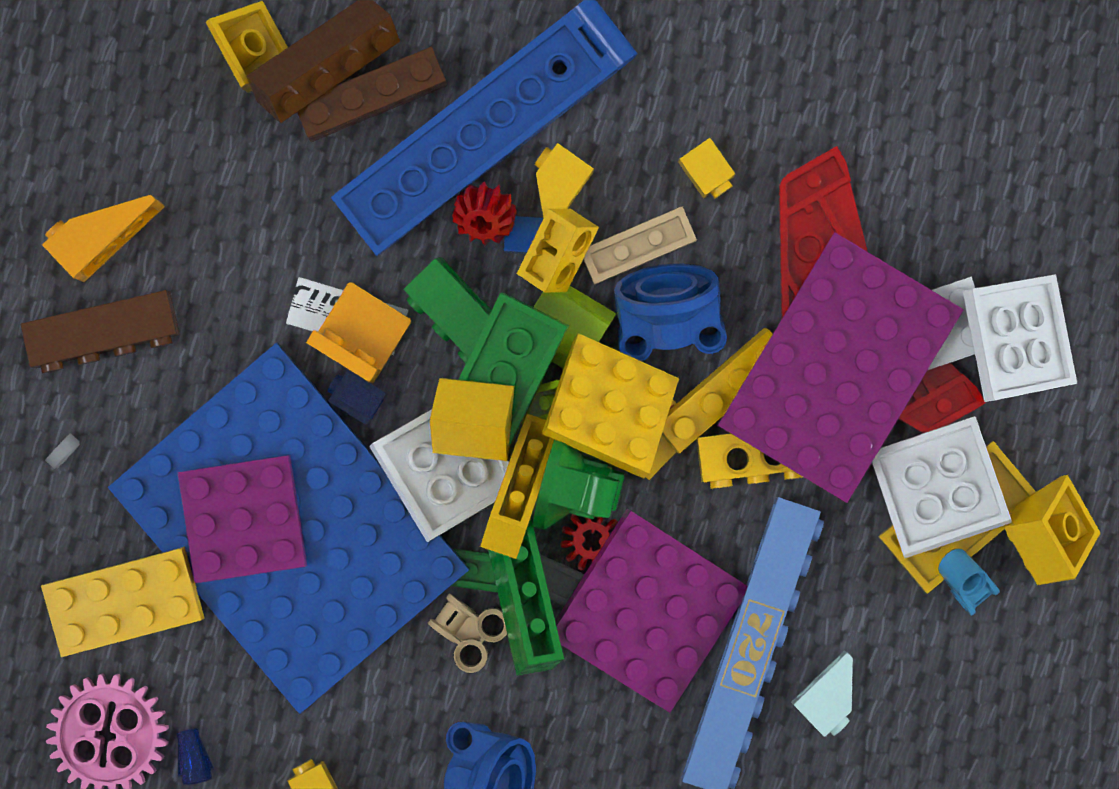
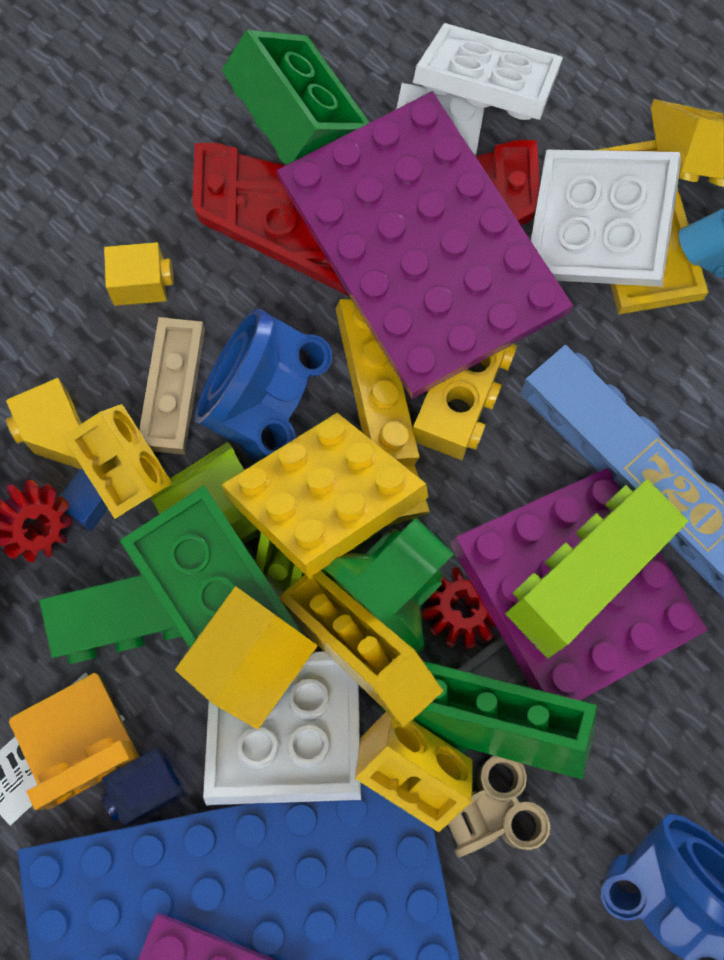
camera: 60 degrees left, 15 degrees down
(462, 567) = (415, 771): none -> yellow brick
(662, 615) = (596, 569): none -> lime brick
(909, 207) = (291, 93): none -> green brick

